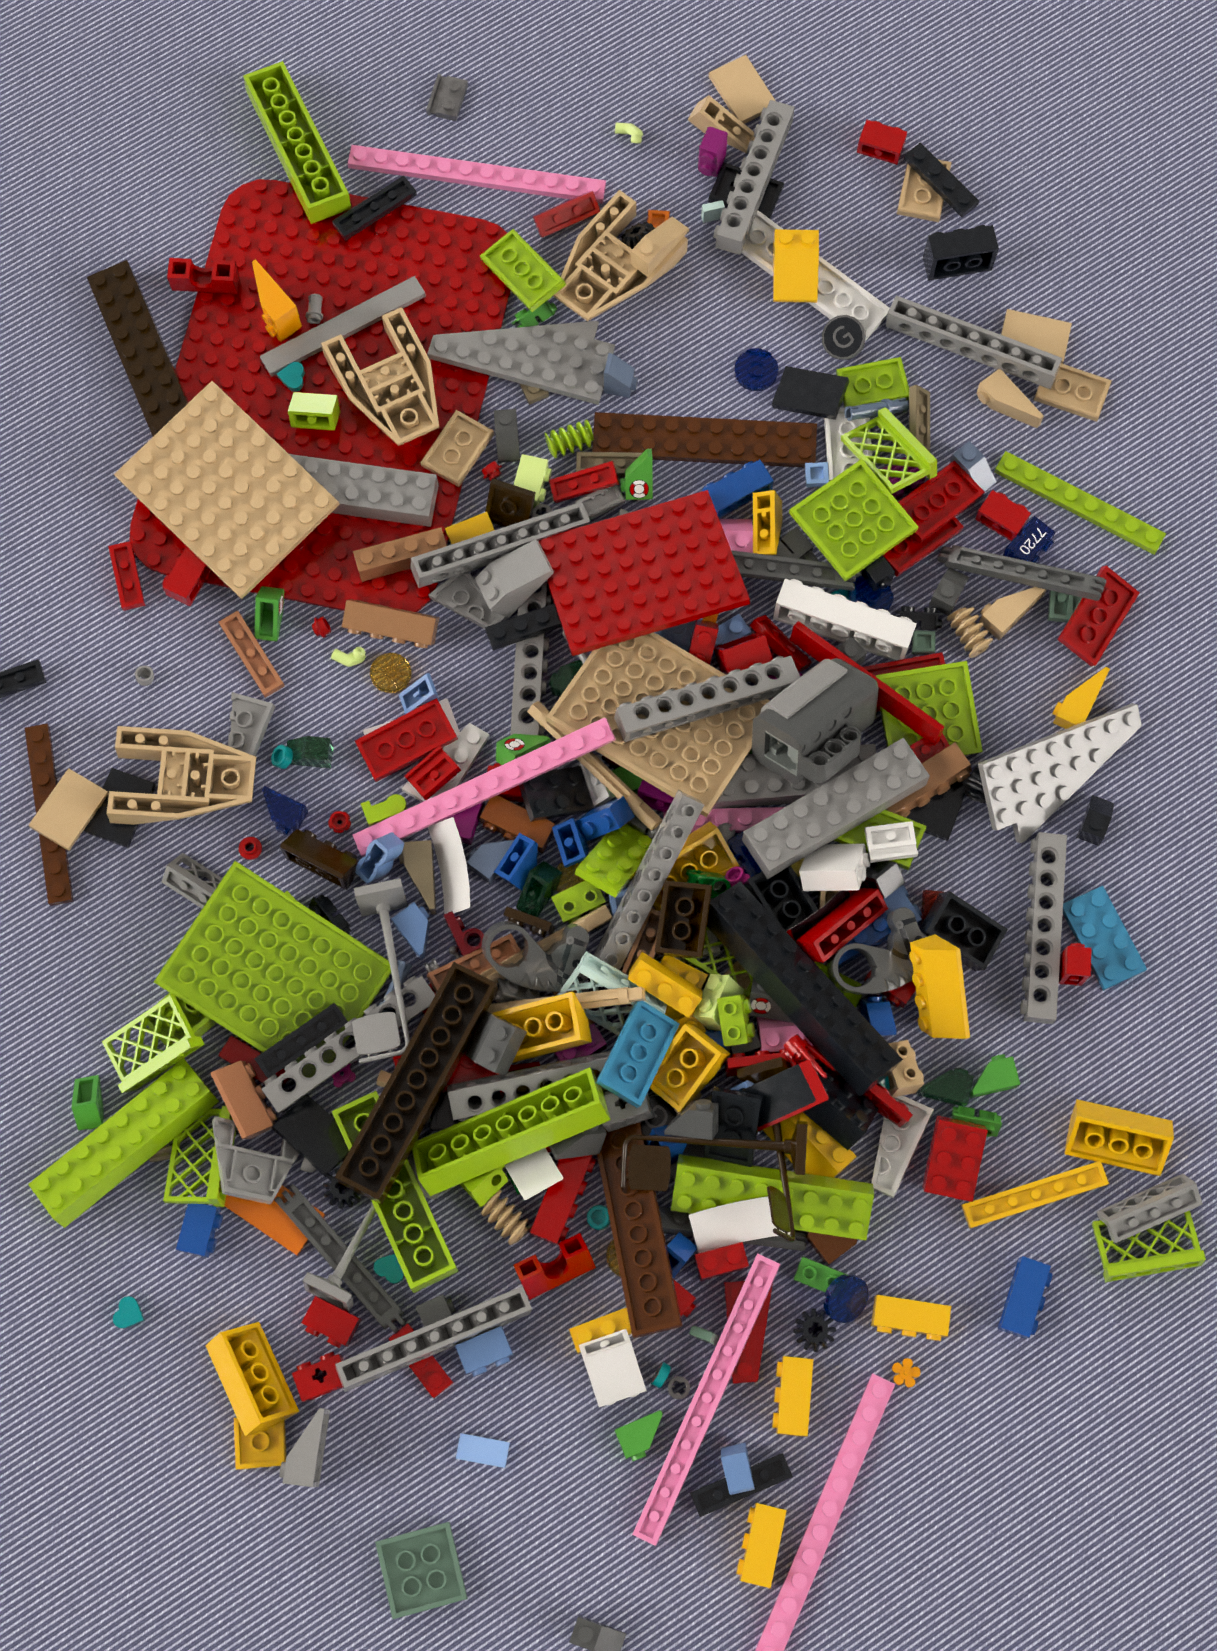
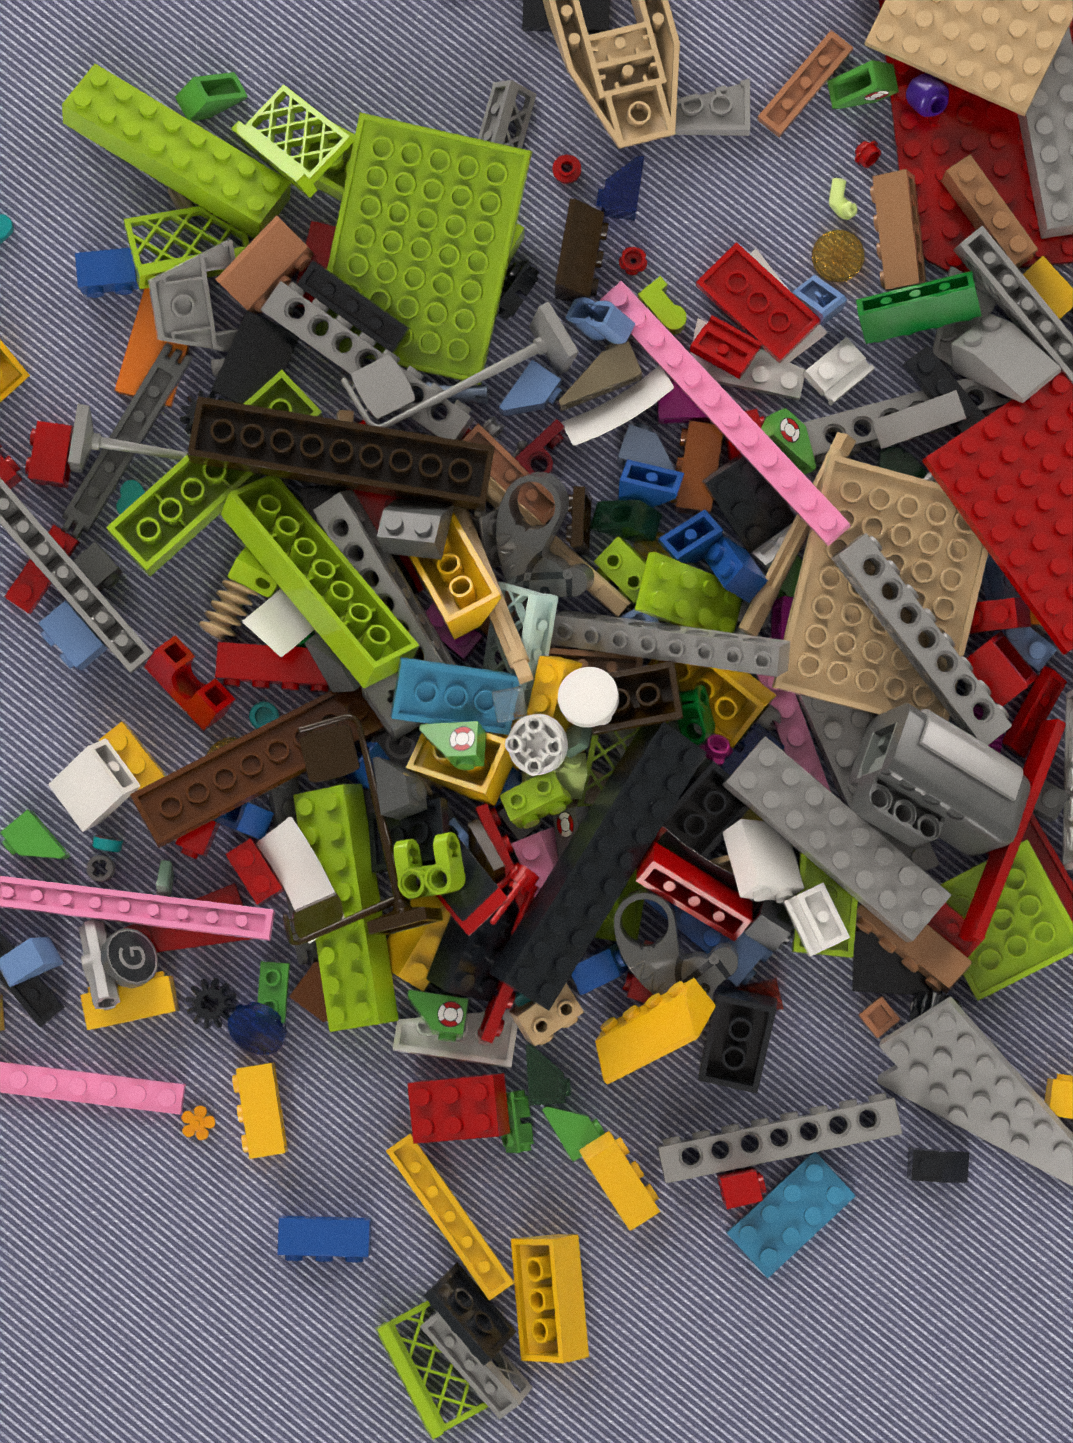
camera: 75 degrees right, 10 degrees up
(282, 756) = (689, 165): teal tile -> none
(295, 568) = (927, 95): none -> dark purple head
(311, 751) = (706, 196): clear green slope -> none
(348, 1076) = (335, 376): dark pink plate -> none
(453, 625) = (918, 307): none -> green brick
(478, 699) = (838, 371): none -> white plate
(539, 650) = (919, 419): none -> light grey tile
(657, 1014) = (509, 704): none -> clear tile
(672, 951) = (588, 697): none -> white tile
(674, 1063) = (458, 742): none -> bright green slope
(695, 1002) = (537, 744): none -> white tile
(698, 973) = (578, 739): none -> sand green tile
(758, 1409) = (102, 987): none -> light grey piece
(759, 1129) = (447, 859): none -> lime piece
(761, 1381) = (129, 958): none -> black tile
(877, 1149) = (441, 1013): none -> bright green slope
(974, 826) = (879, 1017): none -> nougat plate
(1044, 1052) = (621, 1179): none -> yellow brick
(1116, 1200) = (470, 1314): none -> black plate

